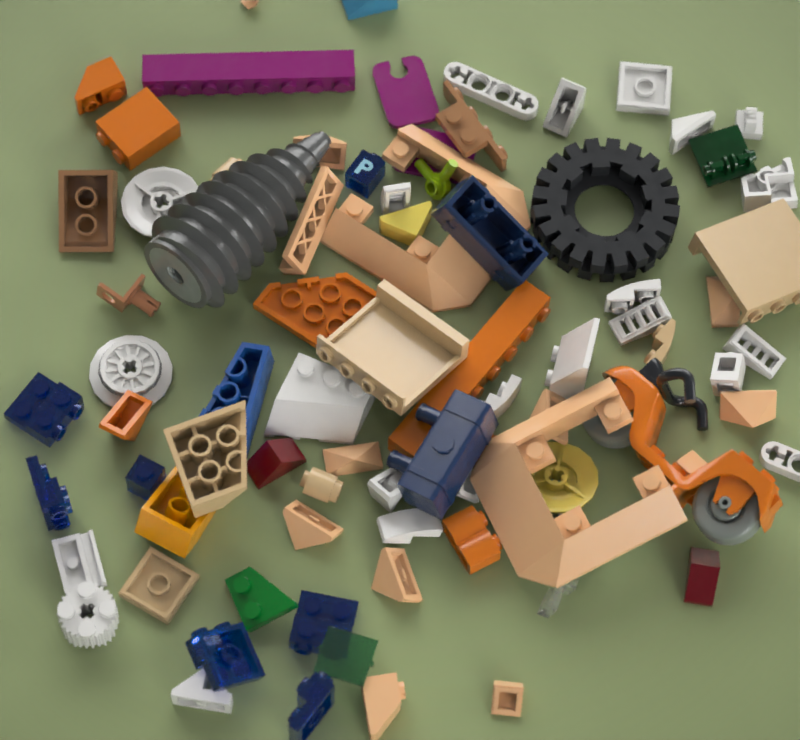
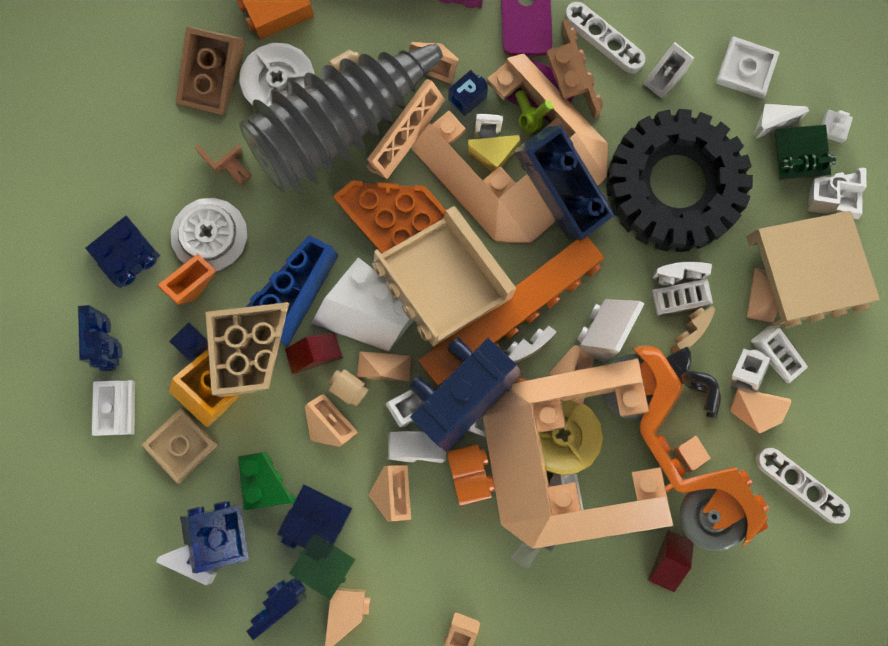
camera: 15 degrees right, 15 degrees up
(83, 601) = (91, 460): white brick -> none

